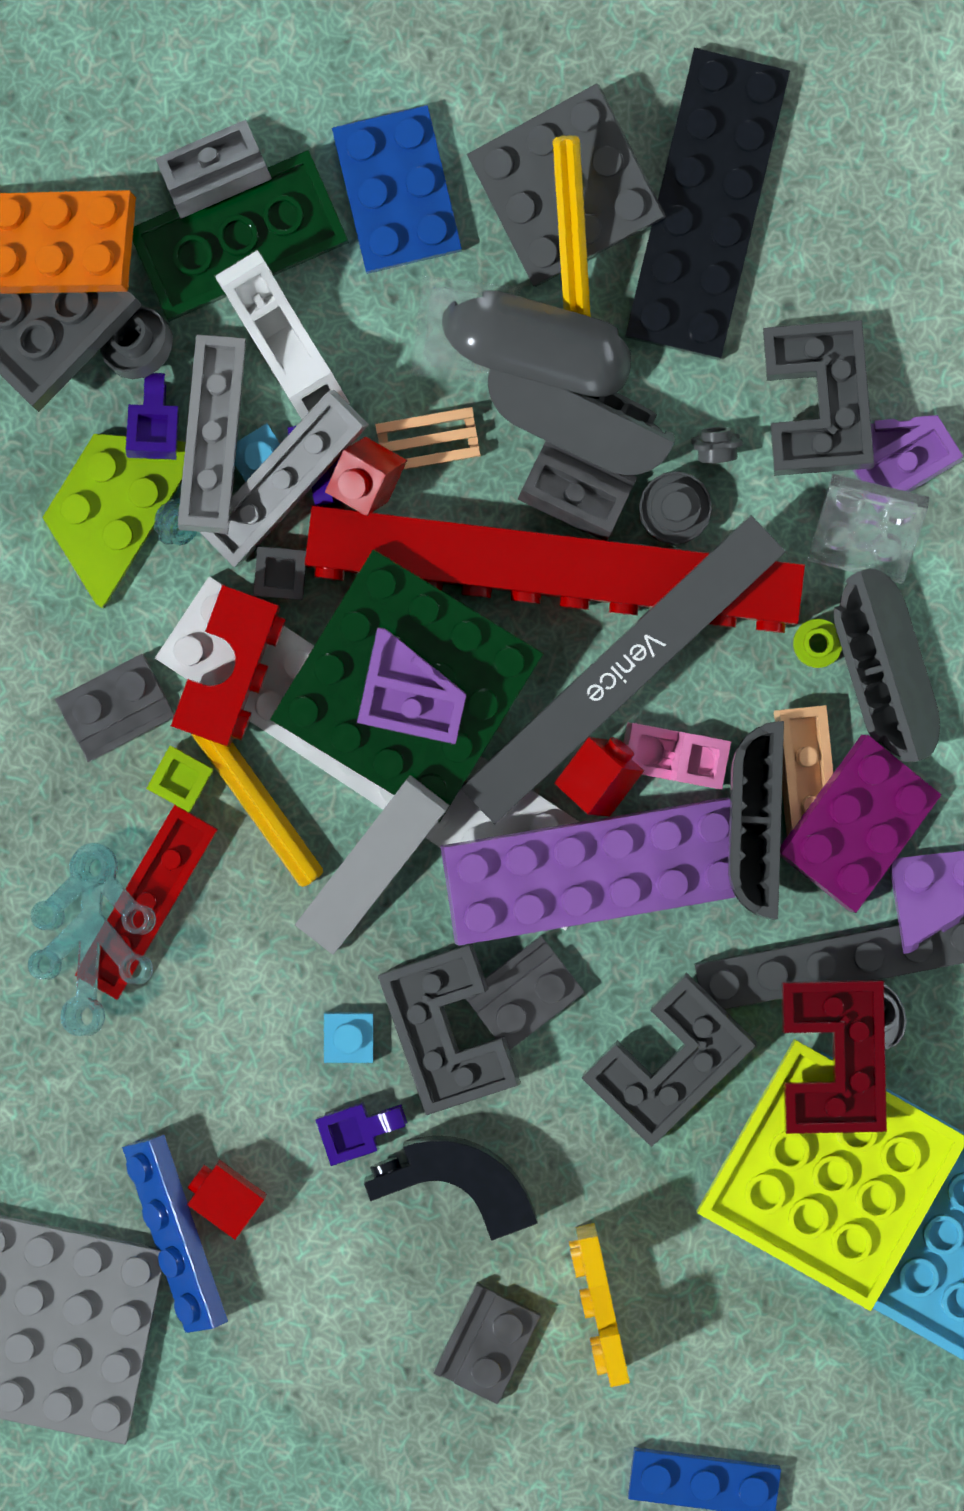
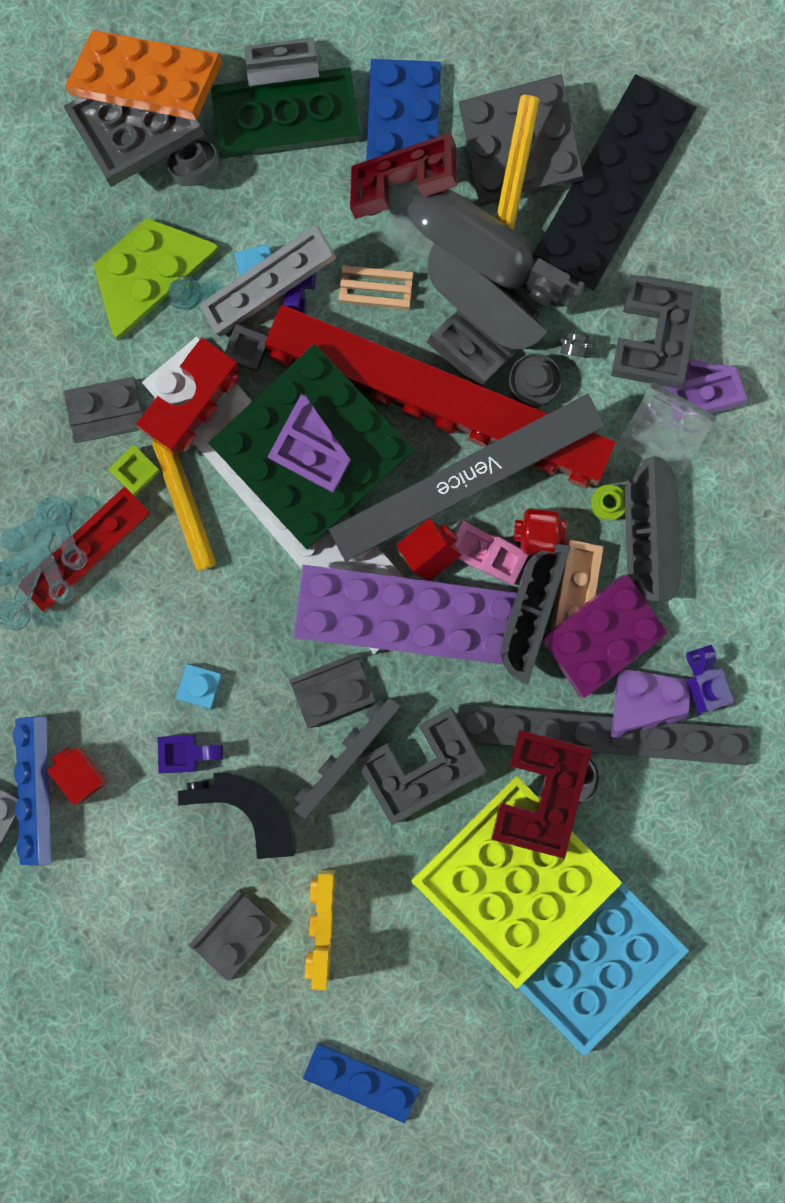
camera: 10 degrees right, 5 degrees down
(152, 426) = (188, 221): dark purple plate -> none
(212, 434) = (226, 238): light grey plate -> none
(278, 333) = (291, 176): white arch -> none
(365, 476) = (325, 295): red brick -> none
(372, 865) = (250, 565): light grey tile -> none
(417, 1003) = (253, 679): dark grey plate -> none
(450, 255) = (429, 161): none -> dark red plate
(558, 1094) = (335, 768): none -> dark grey plate
(660, 379) = (552, 286): none -> flat silver plate
(738, 709) = (540, 530): none -> red head

